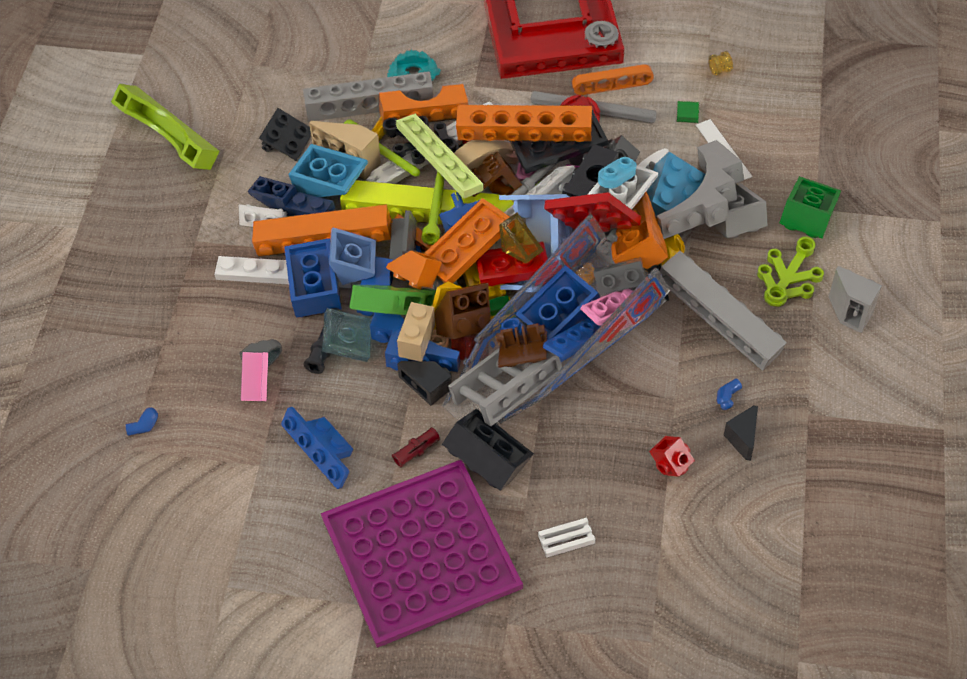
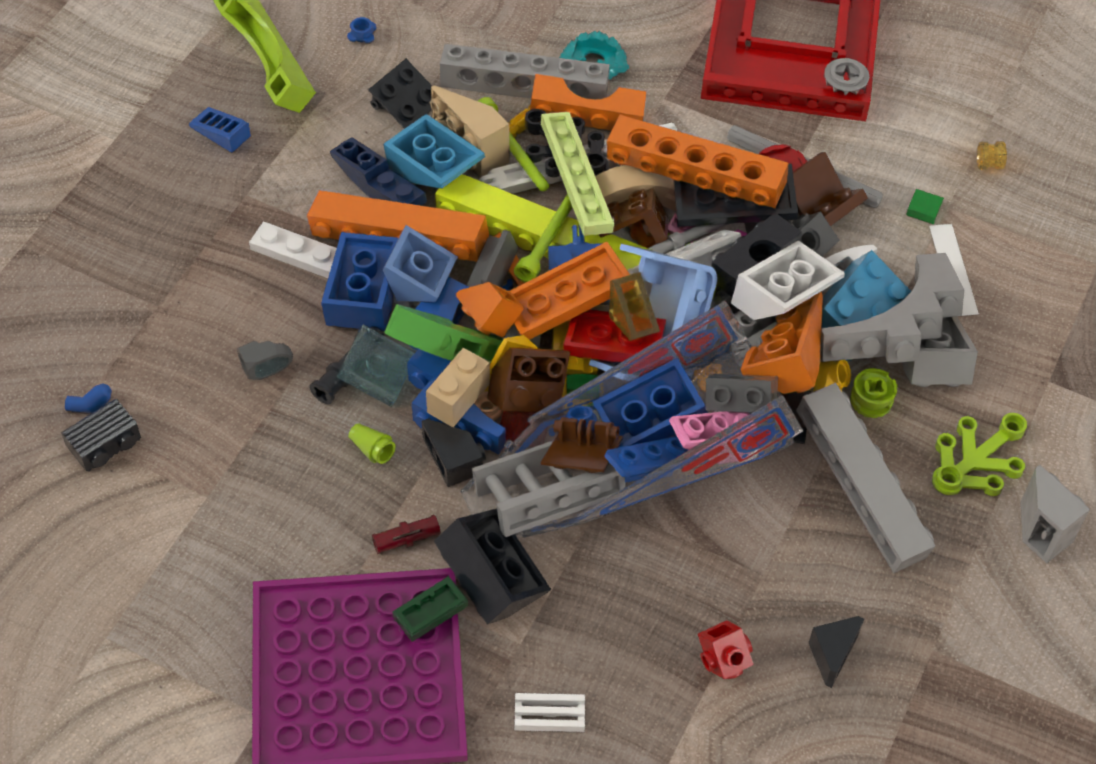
camera: 15 degrees right, 0 degrees up
(164, 204) = (230, 141): none -> blue slope
(164, 444) = (101, 435): none -> black brick
(233, 96) = (361, 30): none -> blue plate
(249, 214) = (325, 181): white hinge -> none
(254, 376) = (241, 383): bright pink panel -> none
(321, 444) = (291, 493): blue bracket -> none
(367, 391) = (373, 443): none -> lime cone
(457, 492) = (430, 608): none -> dark green plate
(604, 207) = (744, 296): red plate -> none
(616, 121) = (821, 190): none -> reddish brown bracket
(617, 172) = (789, 258): medium azure plate -> none
(642, 76) = (883, 140): orange beam -> none
(703, 250) = (873, 393): none -> lime wheel
(725, 393) = (831, 587): blue arm -> none
(809, 207) = (1038, 376): green slope -> none

